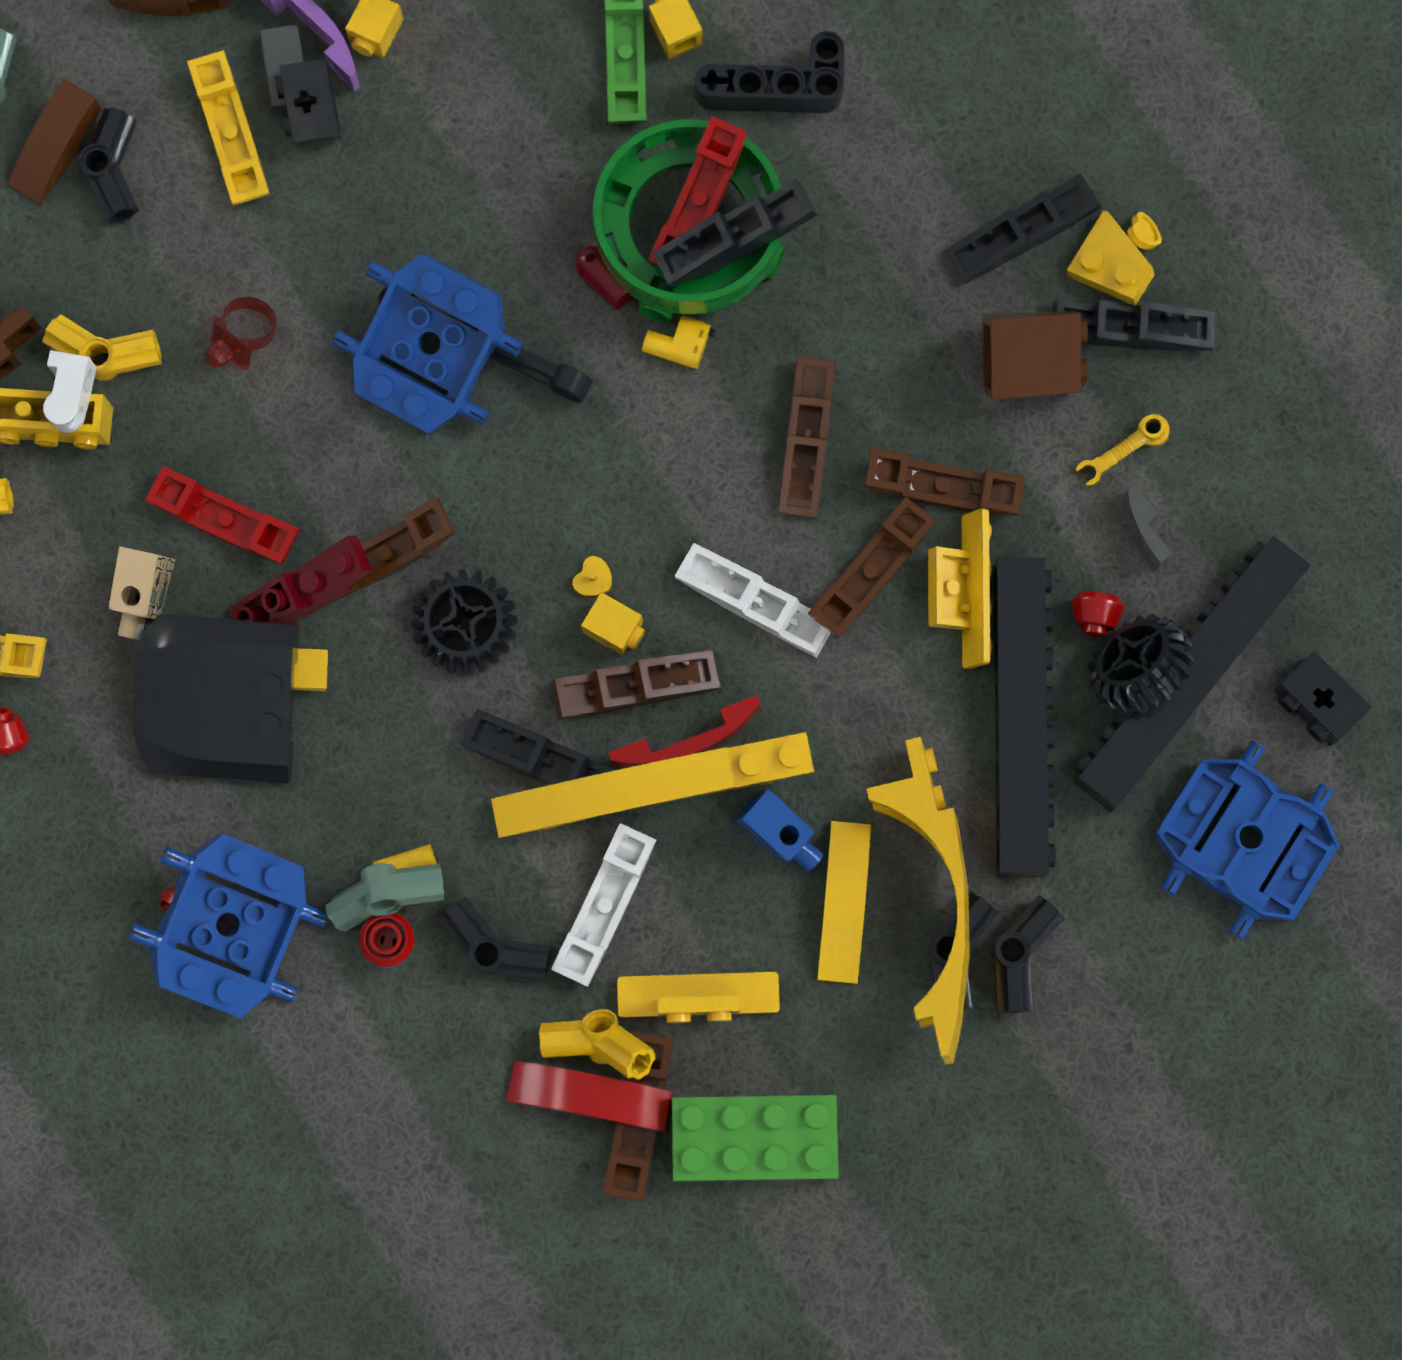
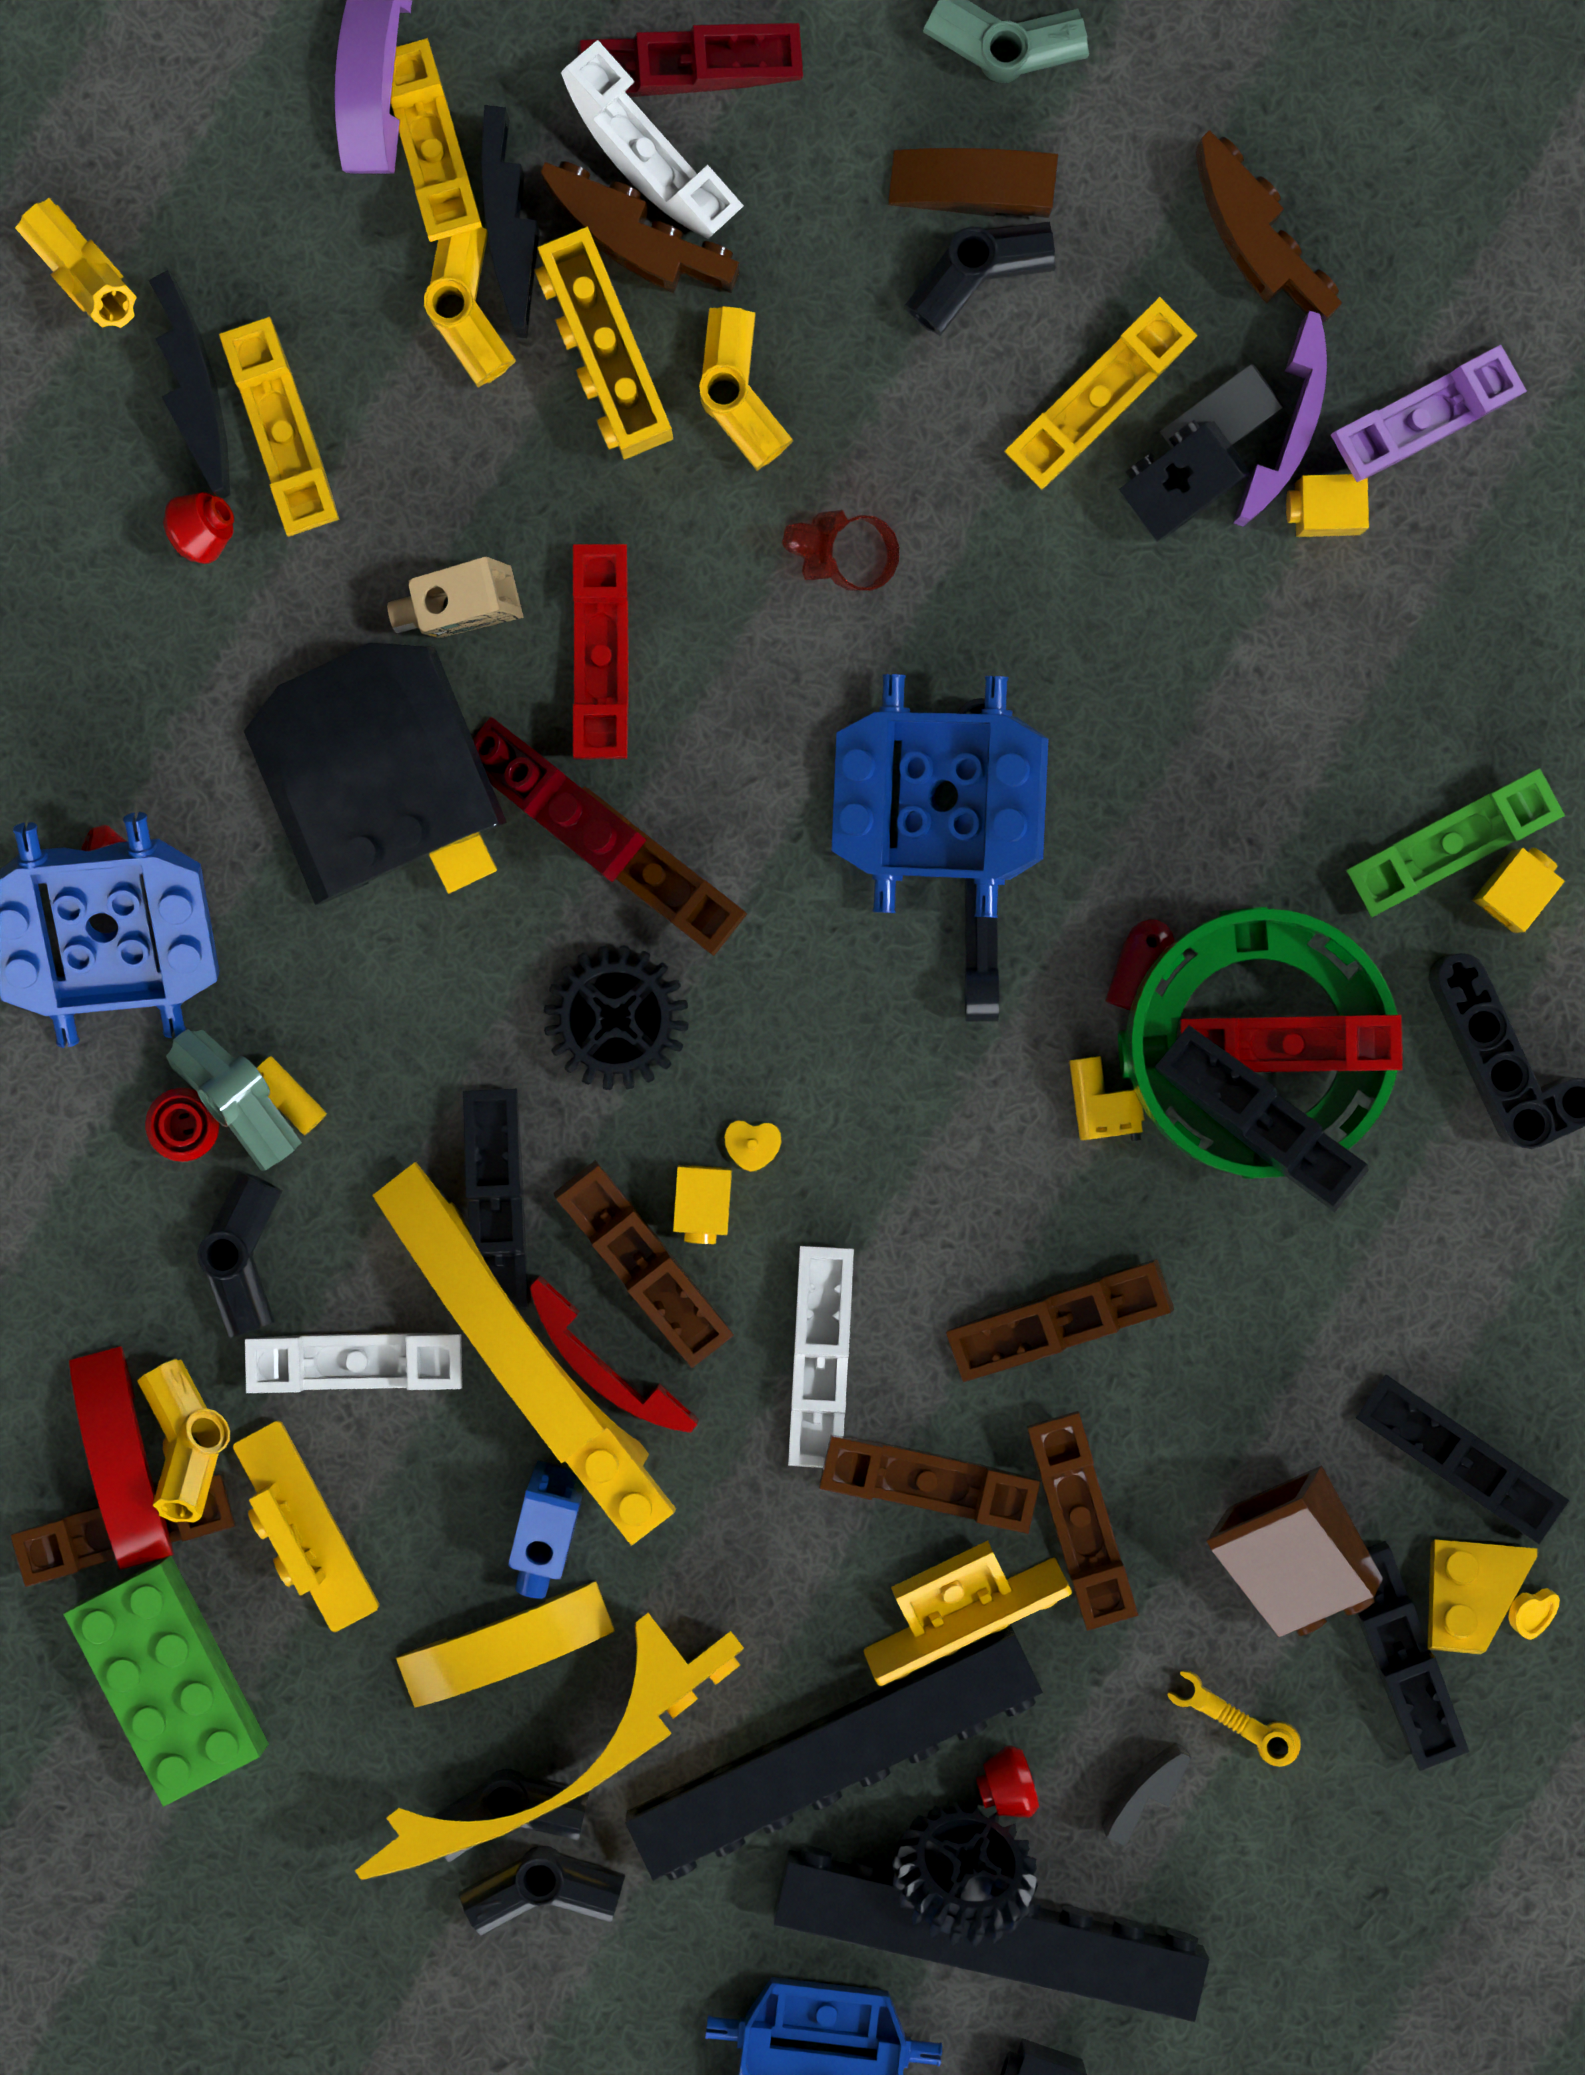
camera: 65 degrees right, 10 degrees up
(71, 390) = (651, 390): white leg -> none

